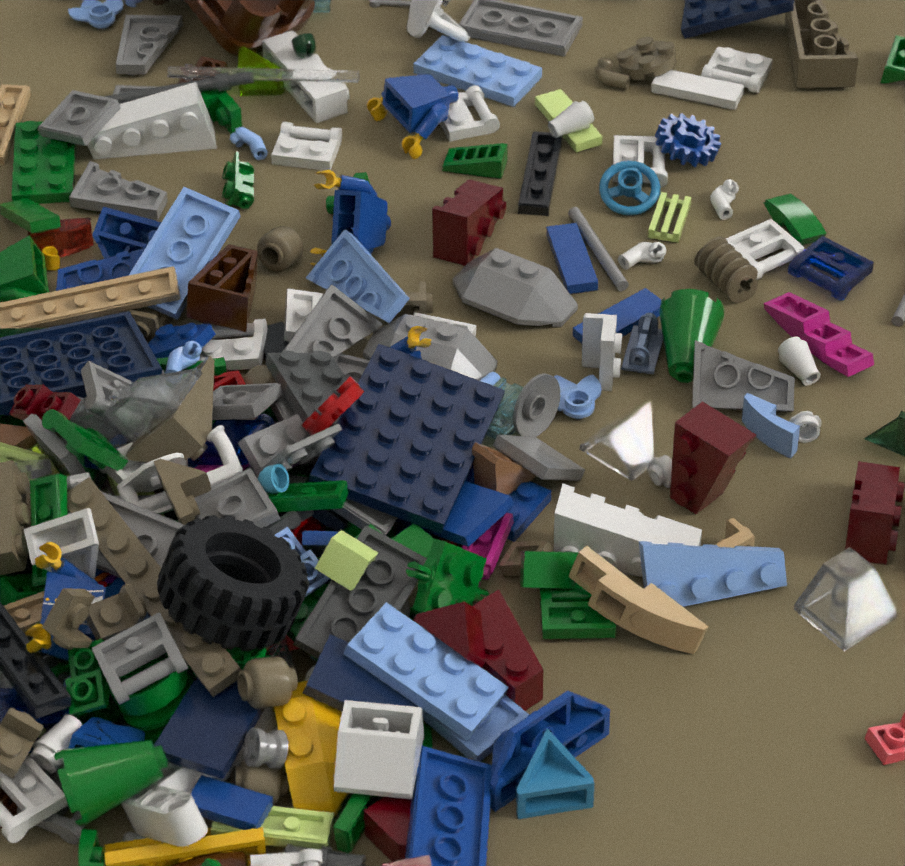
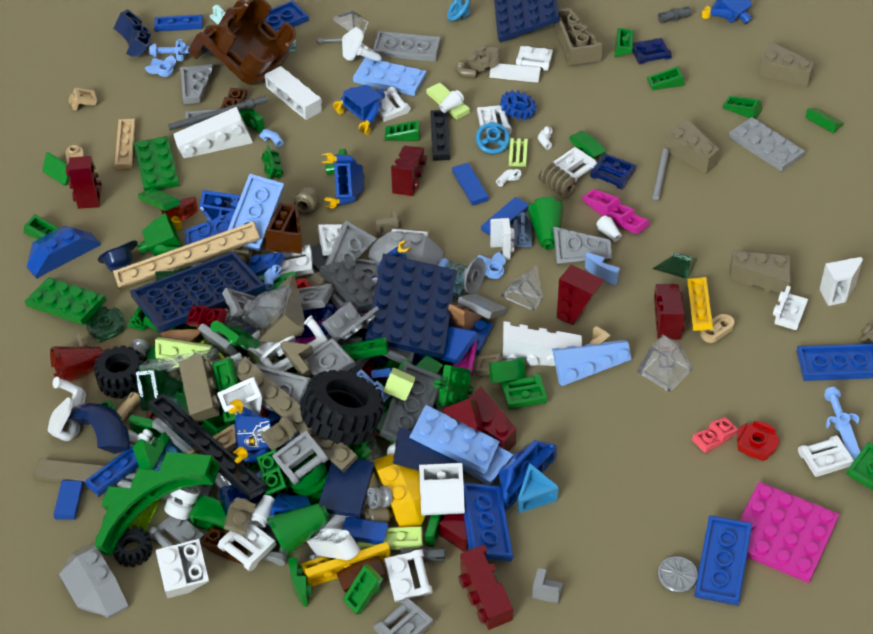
camera: 10 degrees left, 5 degrees up
(67, 615) = (255, 438): dark tan bracket -> none
(79, 117) = (172, 136): light grey tile -> none
(109, 190) = (202, 179): light grey wing -> none
(189, 73) = (272, 95): clear bar -> none
(250, 59) = (273, 95): clear neon green slope -> none
(266, 682) = (373, 460): dark tan head -> none
(274, 479) = (347, 342): medium azure hinge -> none
(304, 44) = (291, 75): dark green hinge -> none
(306, 153) = (304, 140): white plate -> none
(333, 407) = (369, 296): red plate -> none
(359, 277) = (355, 210): light blue wing -> none
(514, 290) = (443, 207): light grey wedge -> none
(598, 249) = (483, 176): light grey bar -> none
(641, 611) = (560, 387): tan slope -> none
(660, 470) = (550, 303): white plate -> none
(812, 428) = (622, 264): white plate -> none

